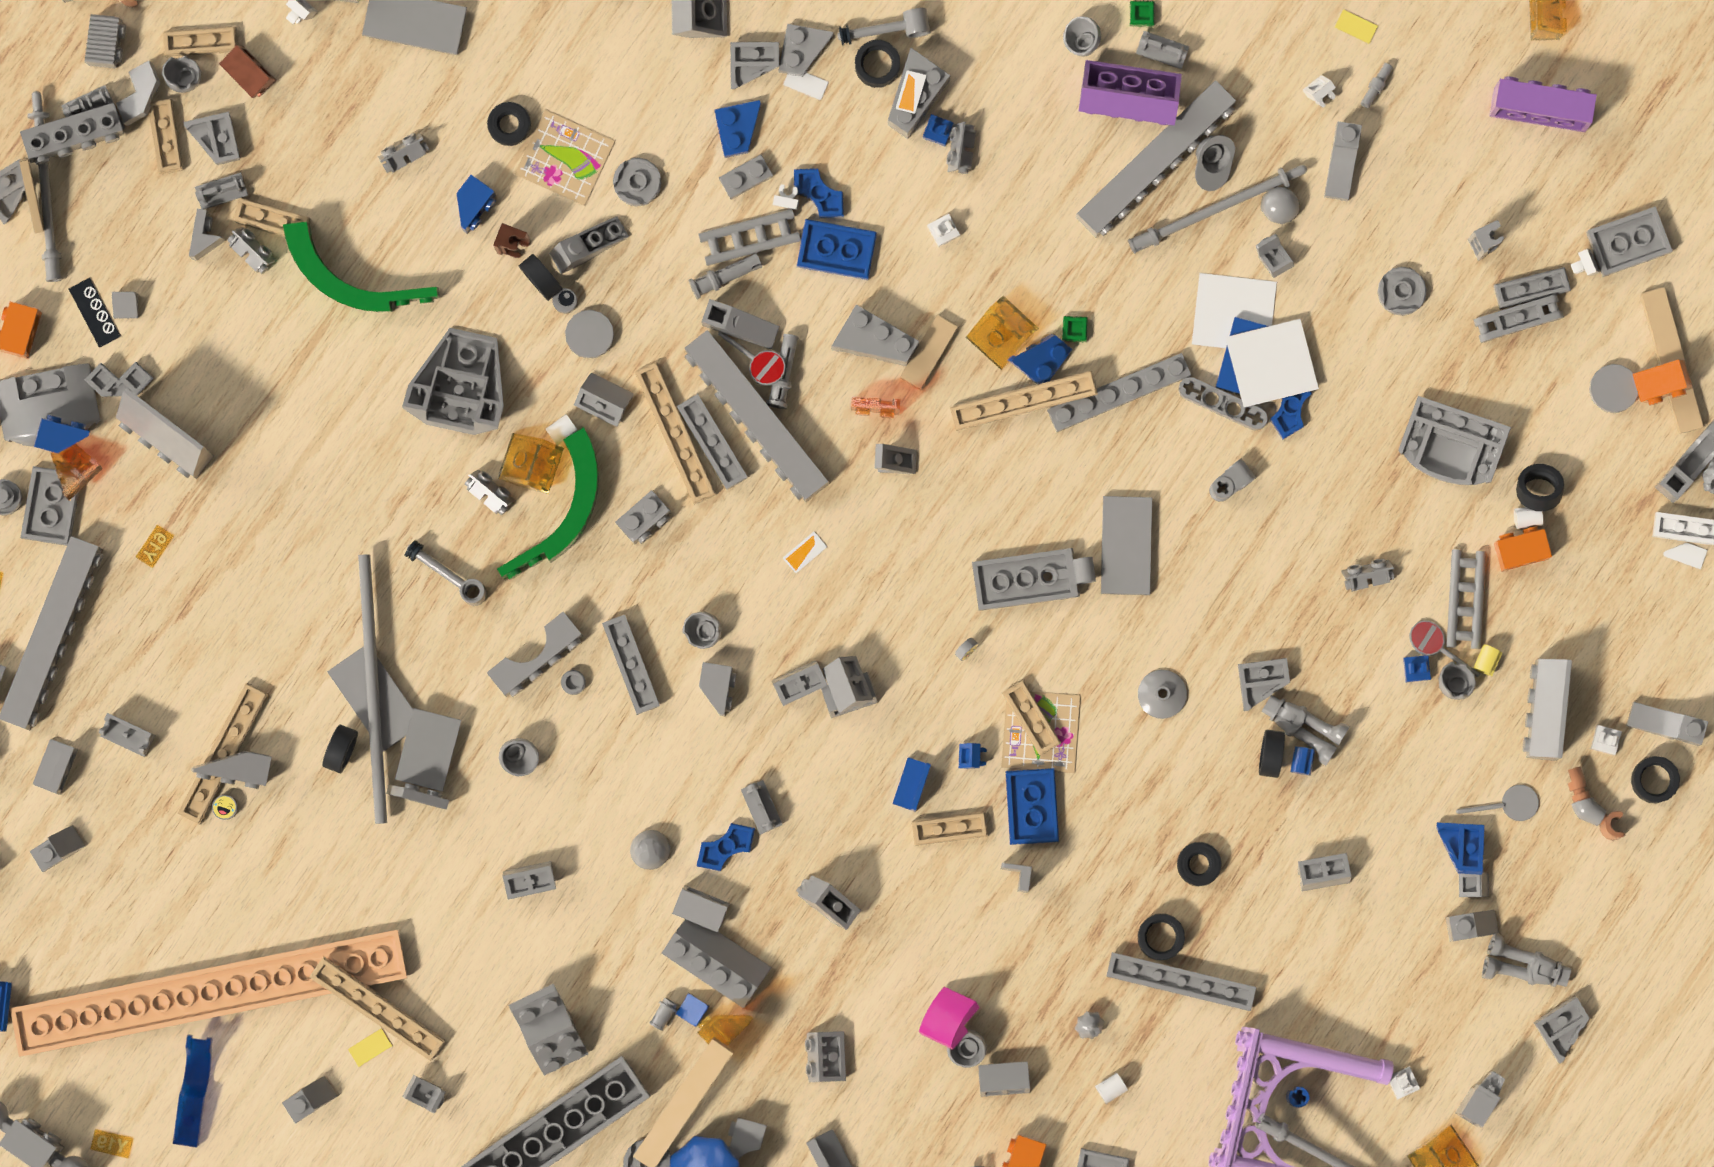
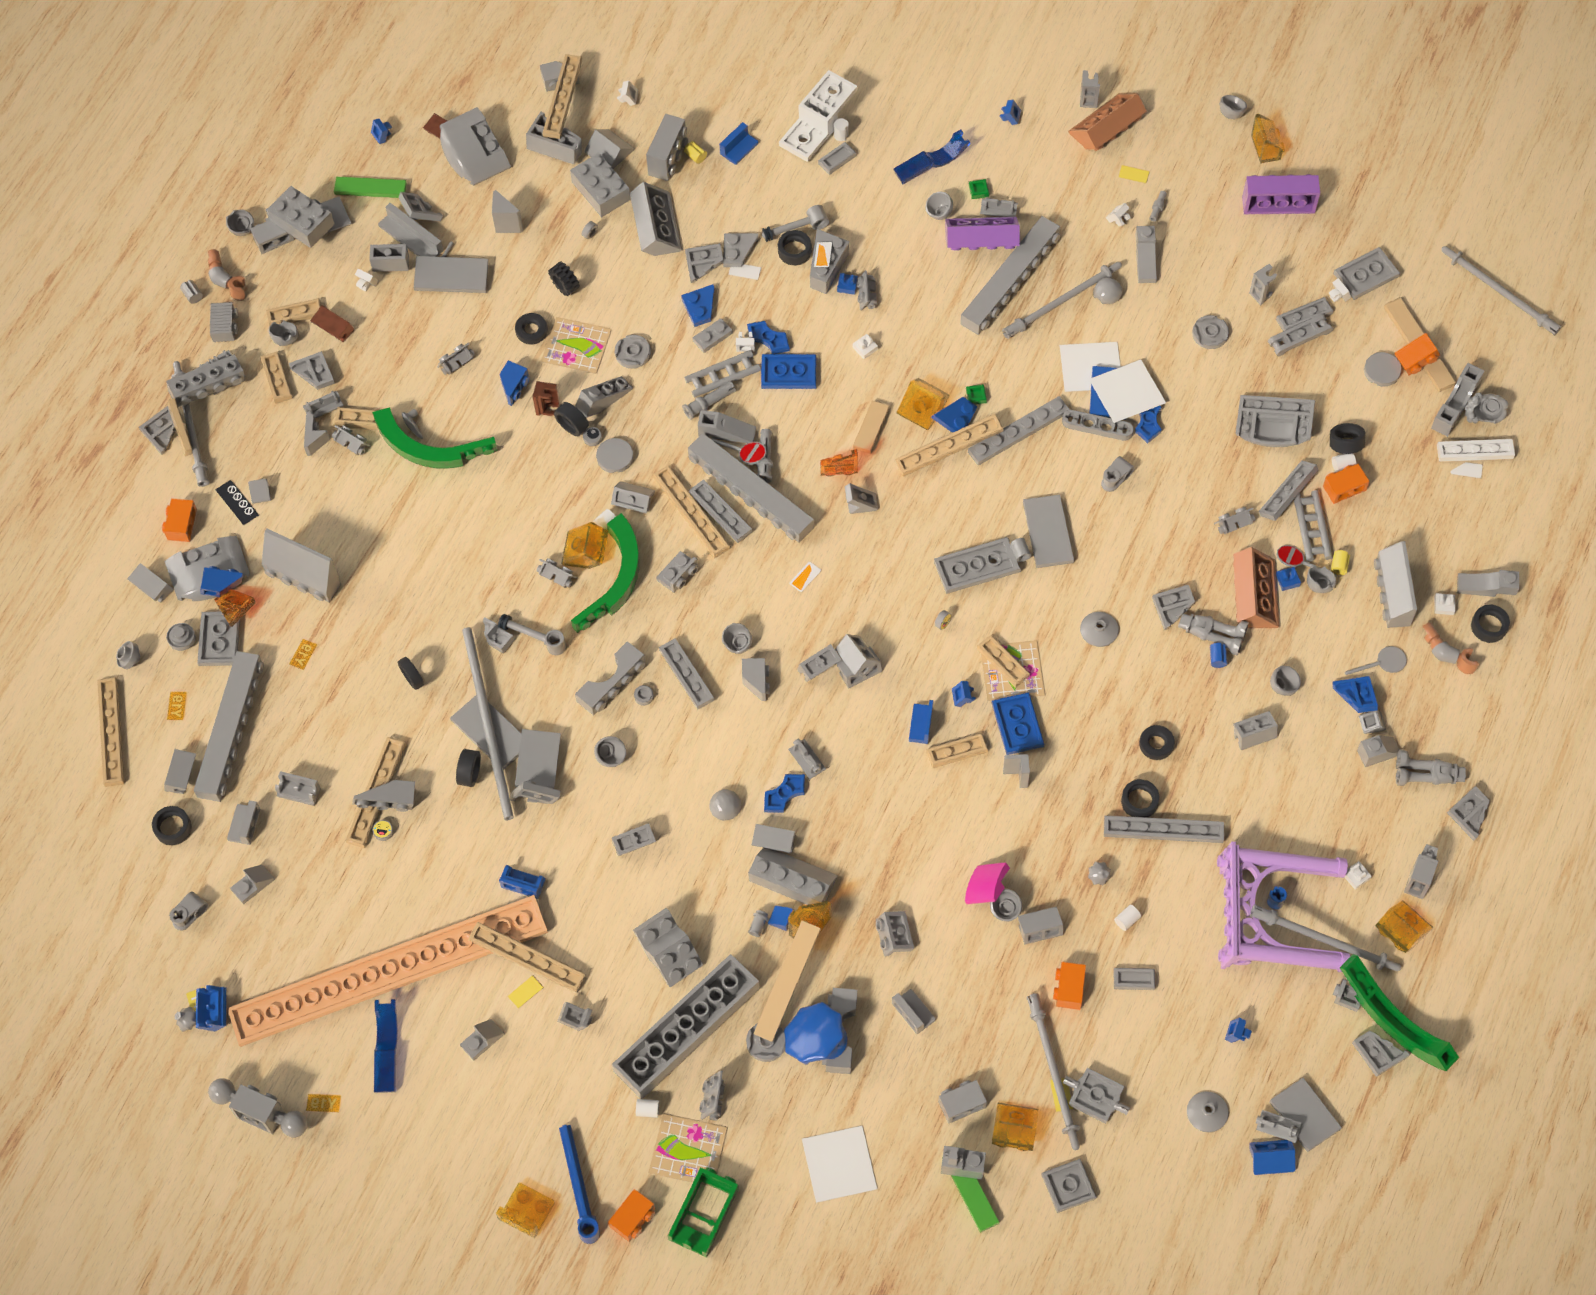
camera: 10 degrees left, 20 degrees down
(108, 385) = (251, 545): light grey tile -> none
(138, 104) = (253, 358): tile -> none
(285, 605) = (410, 673): none -> black tyre
(333, 241) = (408, 419): none -> light grey bar
(386, 906) = (521, 882): none -> blue hinge
(401, 568) = (497, 637): none -> light grey slope
(459, 385) = (521, 503): light grey wedge -> none
(562, 61) = (563, 278): none -> black tyre
(828, 902) = (874, 813): light grey hinge -> none
(874, 338) = (829, 421): light grey wedge -> none
(1214, 162) = (1053, 267): light grey piece -> none
(1271, 753) = (1194, 650): black tyre -> none
(1274, 256) = (1110, 322): light grey bracket -> none
(1371, 679) = (1255, 589): none -> nougat slope
(1377, 813) = (1285, 680): none -> light grey piece
(1446, 546) = (1288, 490): none -> light grey plate

